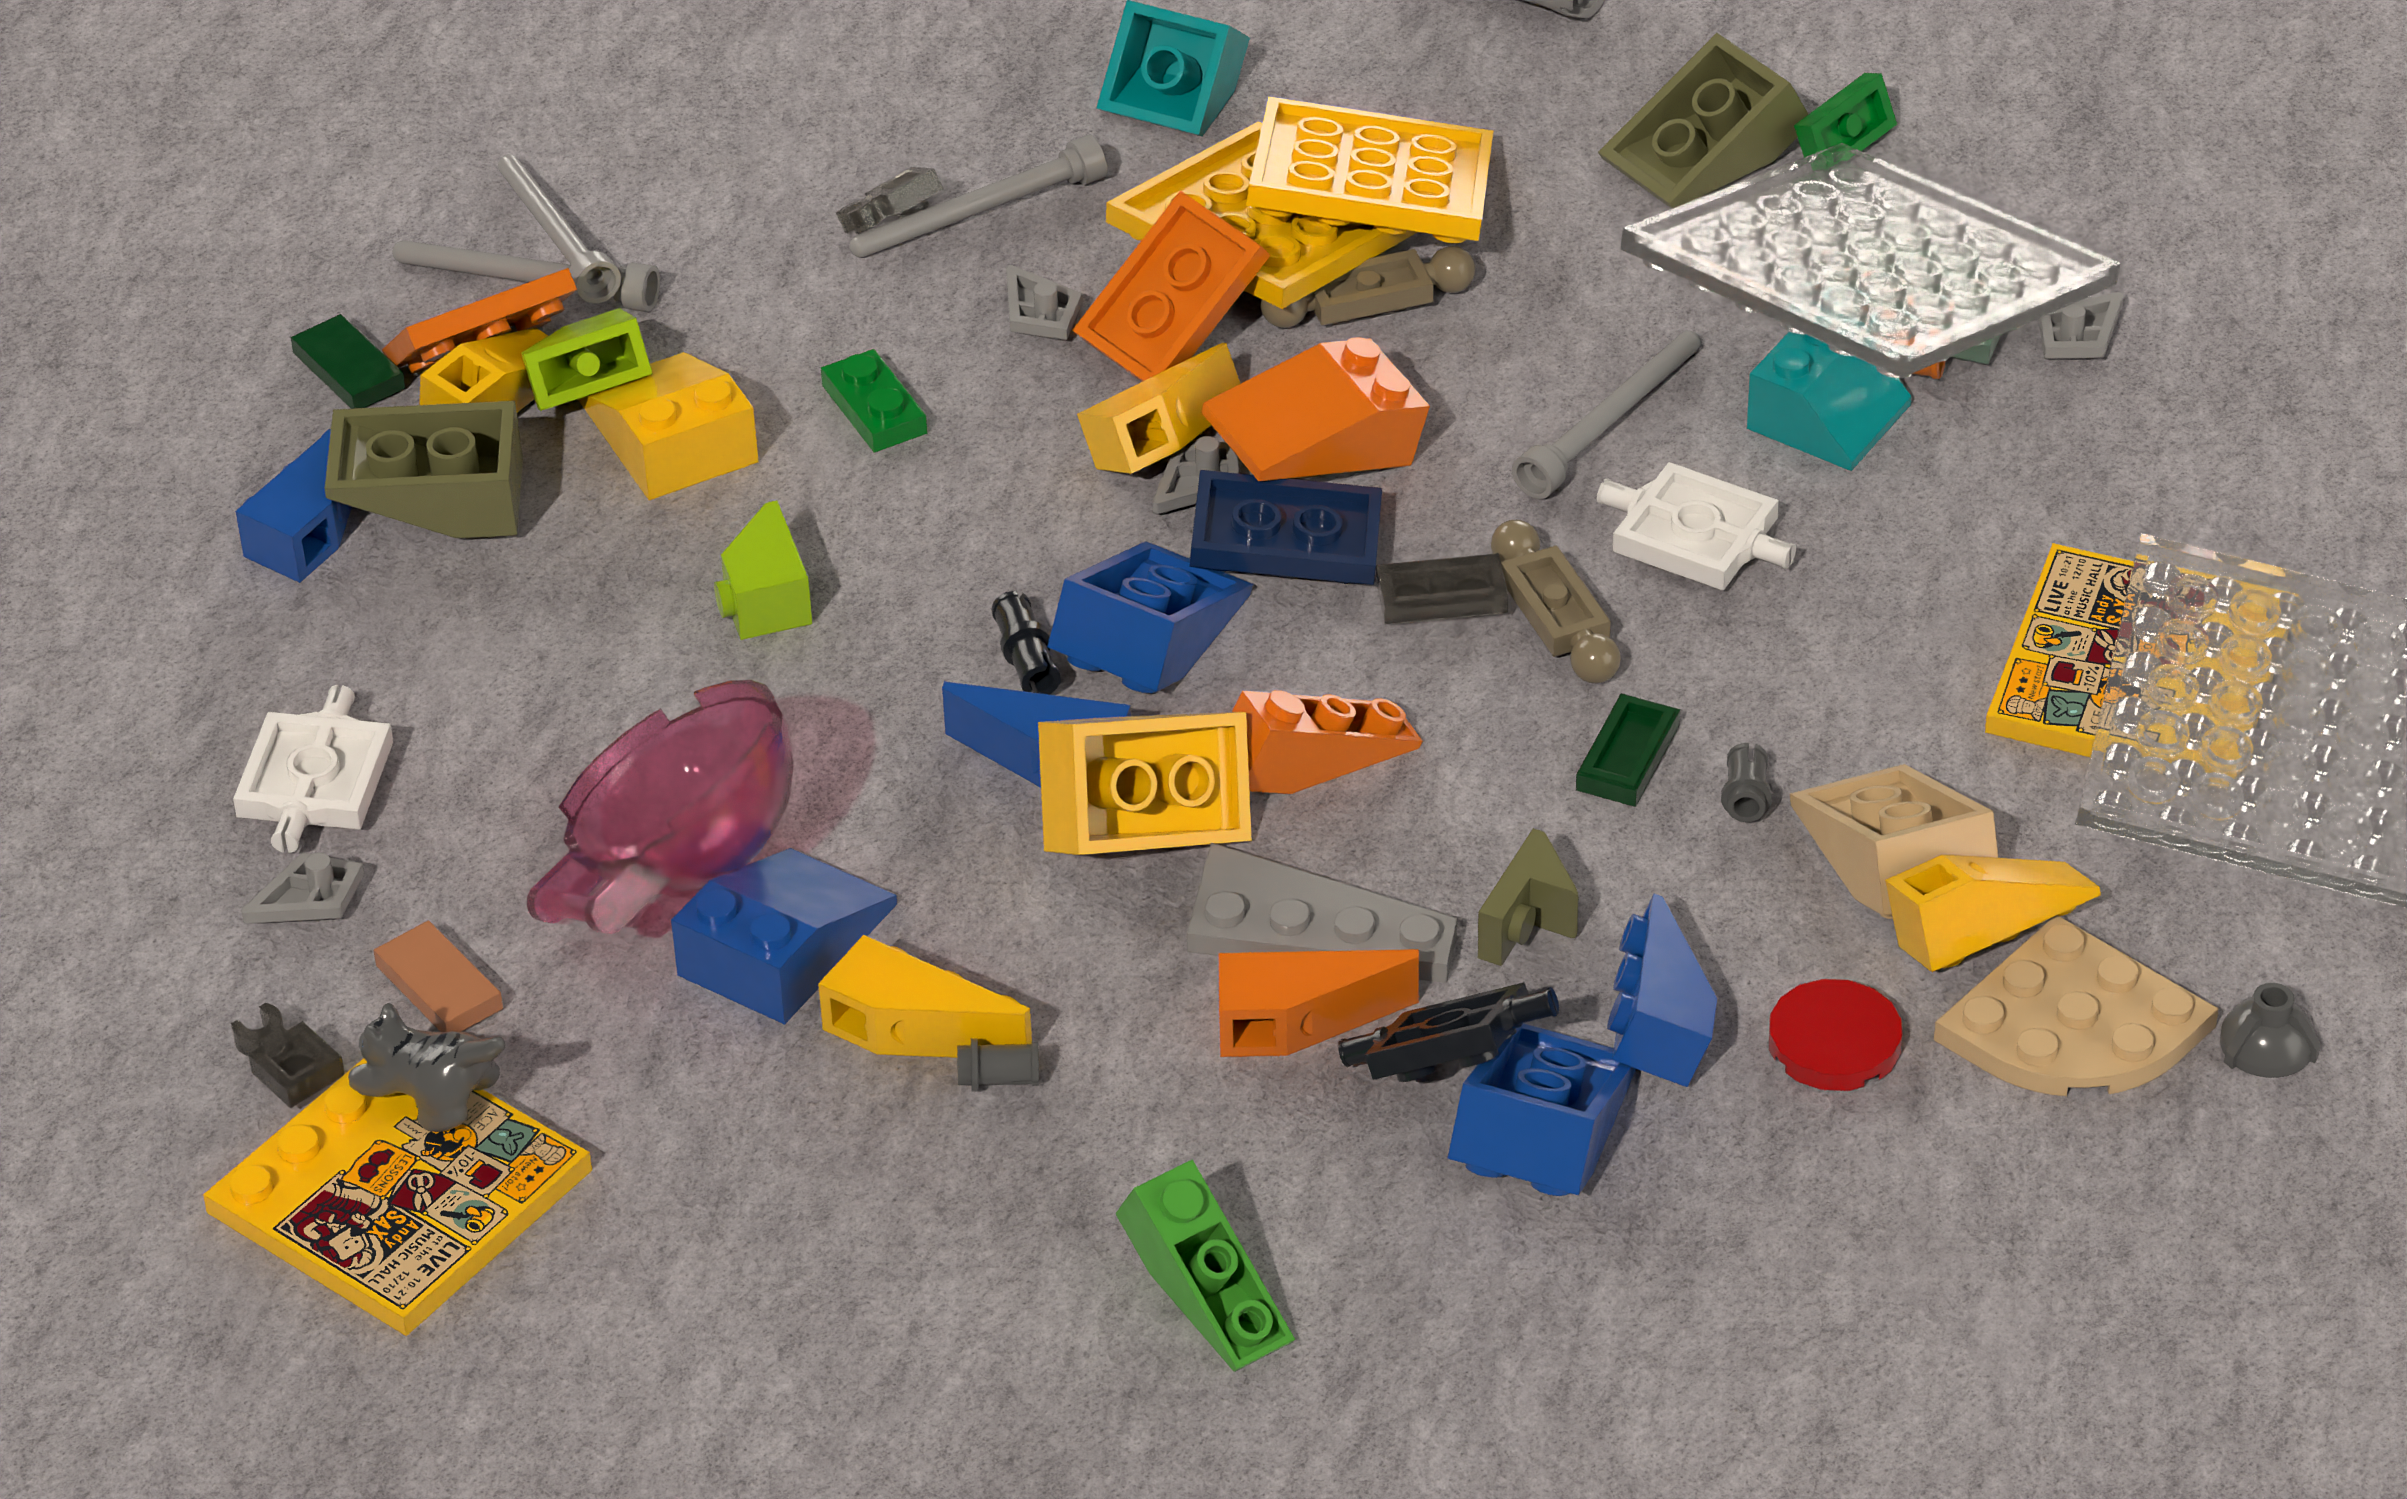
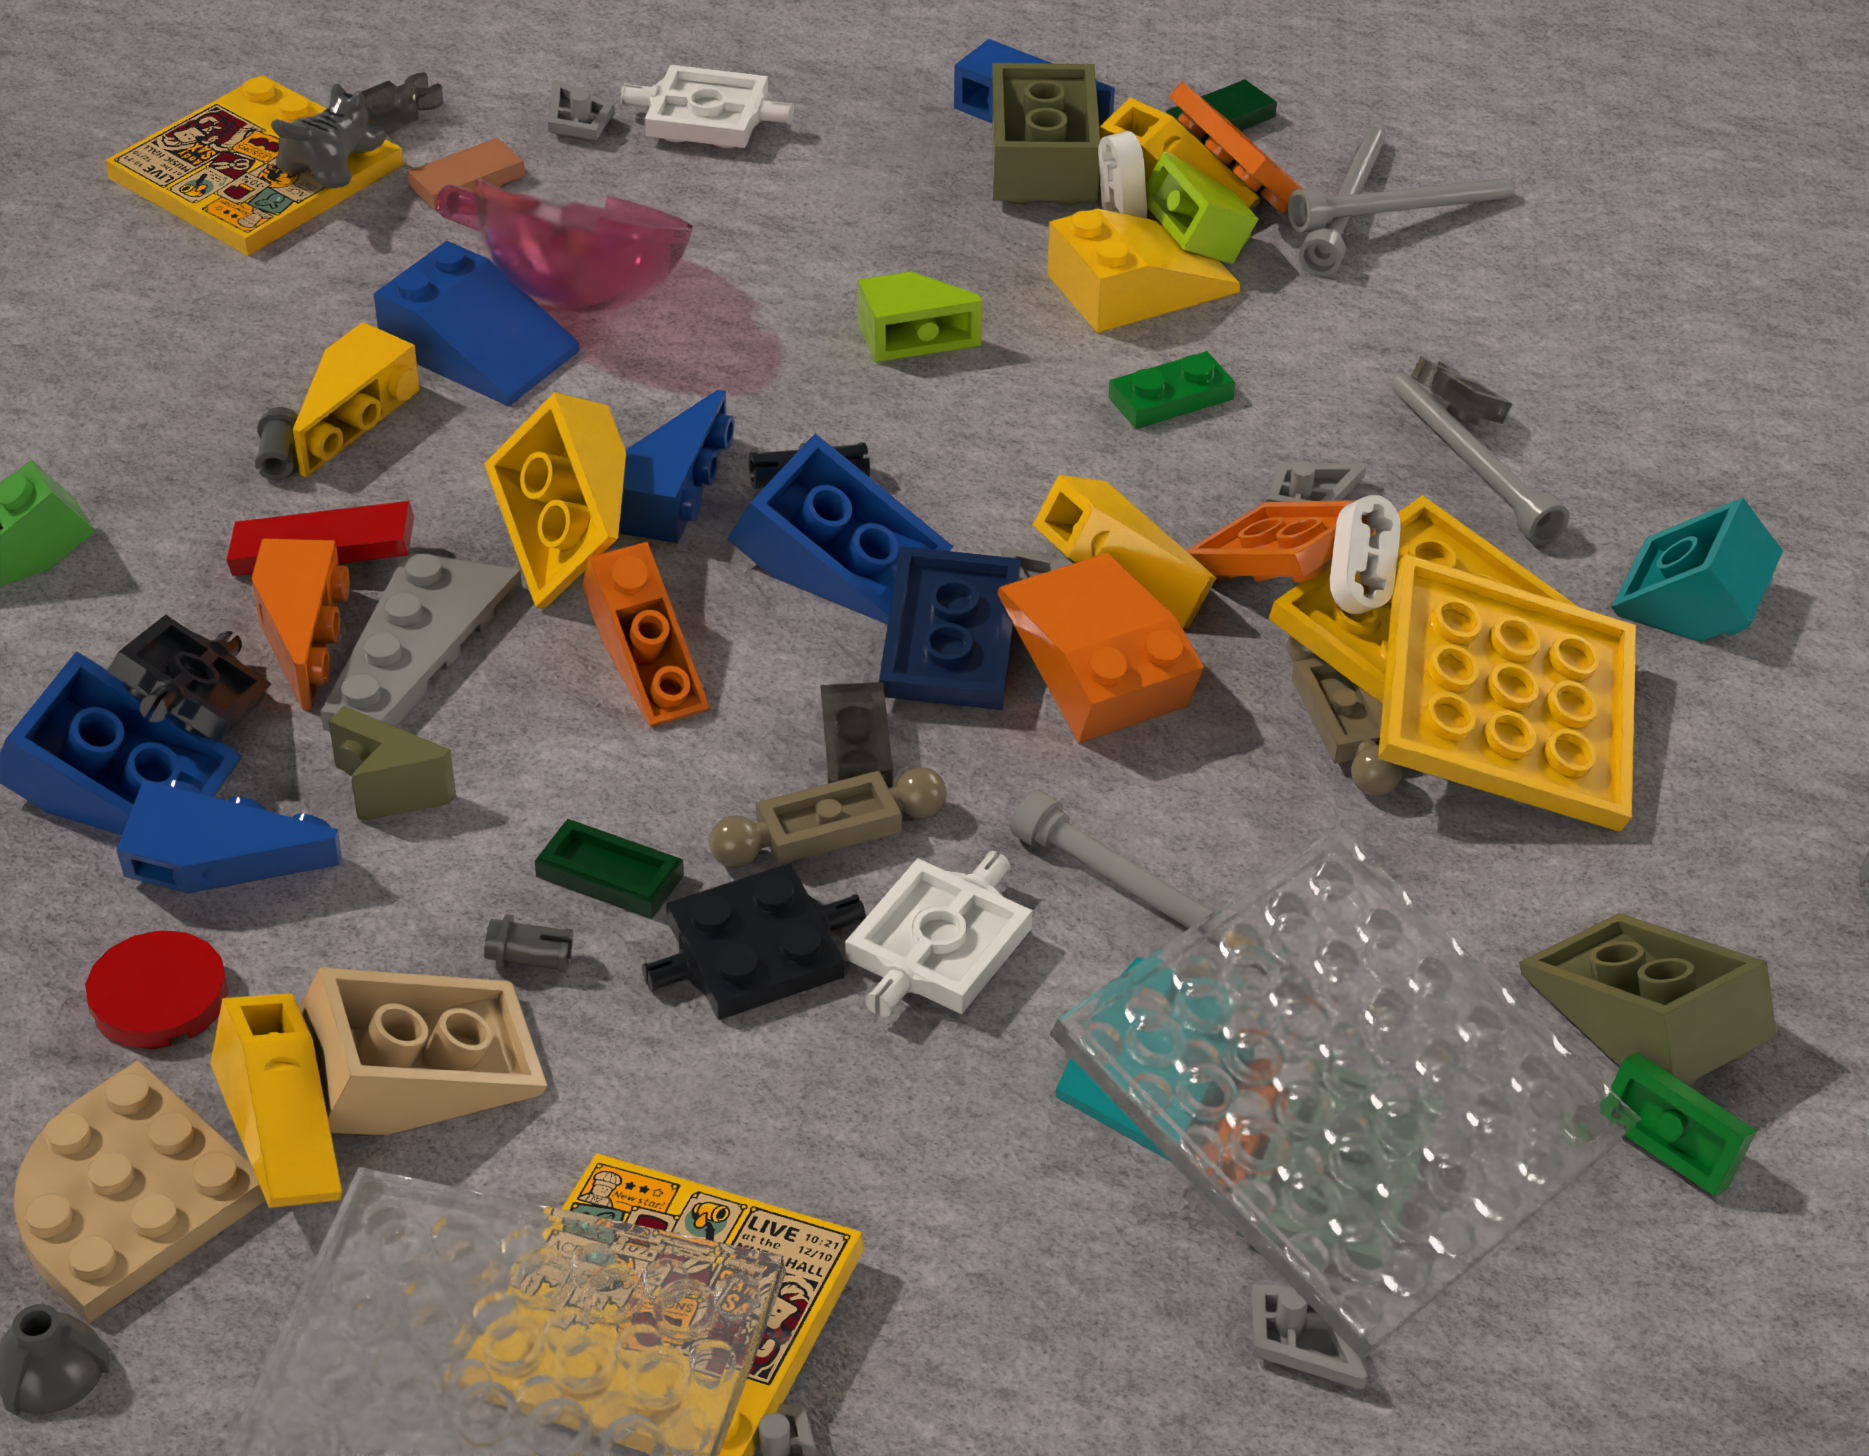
camera: 90 degrees right, 0 degrees up
(553, 400) = (1122, 174): none -> white beam
(1172, 1000) = (359, 533): none -> red tile
(1246, 210) = (1365, 554): none -> white beam
(1714, 644) = (754, 941): none -> black plate

